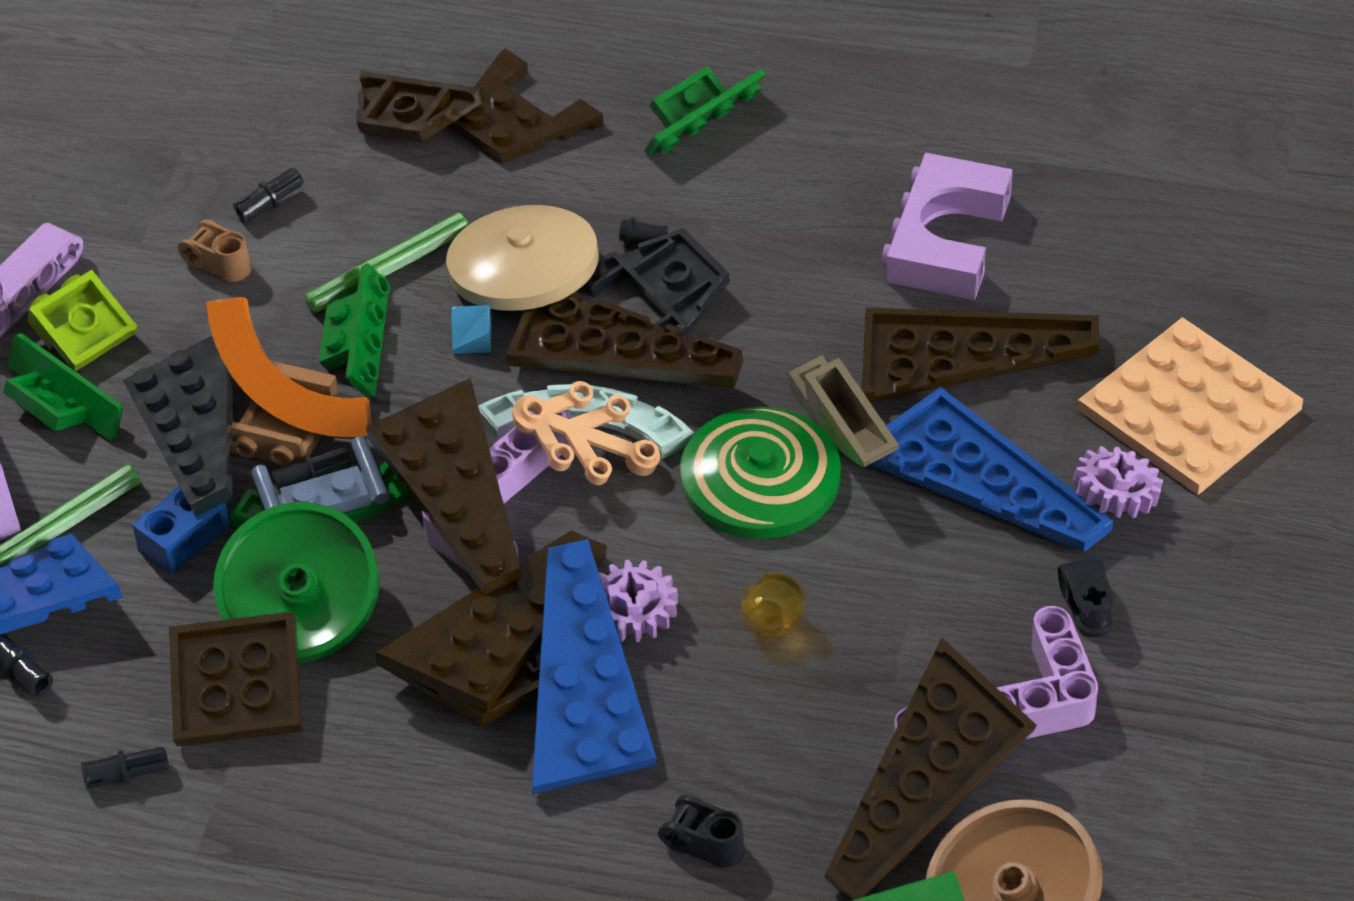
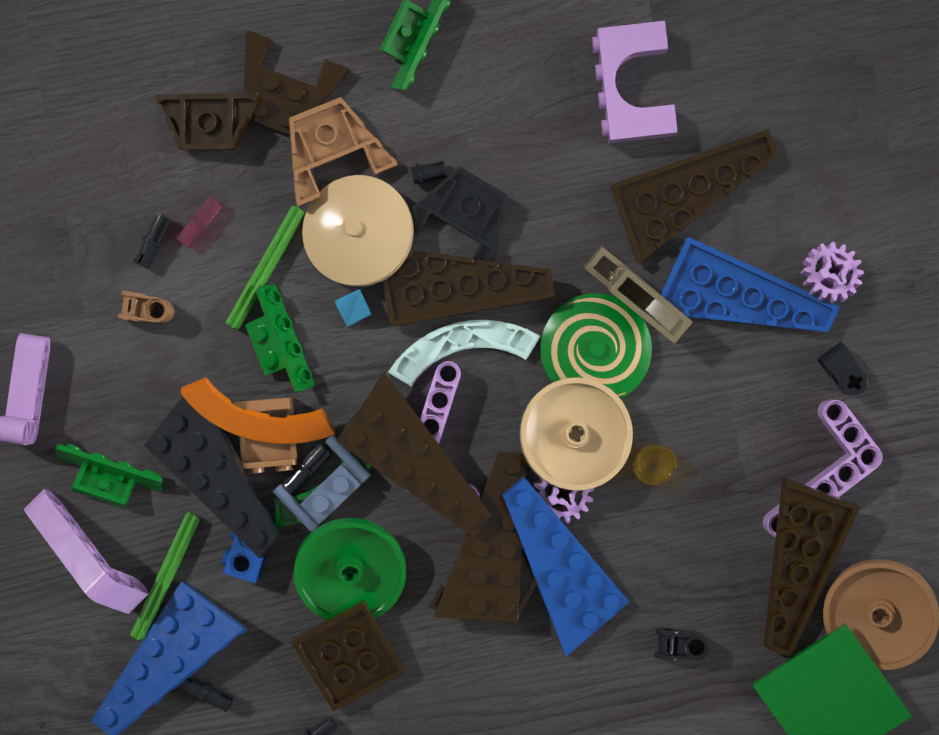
camera: 30 degrees left, 40 degrees up
(80, 320) = (88, 410): lime plate -> none
(335, 196) = (199, 222): none -> clear pink axle
(539, 158) = (327, 135): none -> medium nougat wing
(581, 432) = (473, 379): light nougat plant -> none
(682, 527) = (576, 434): none -> tan dish
(1190, 405) = (851, 177): light nougat plate -> none

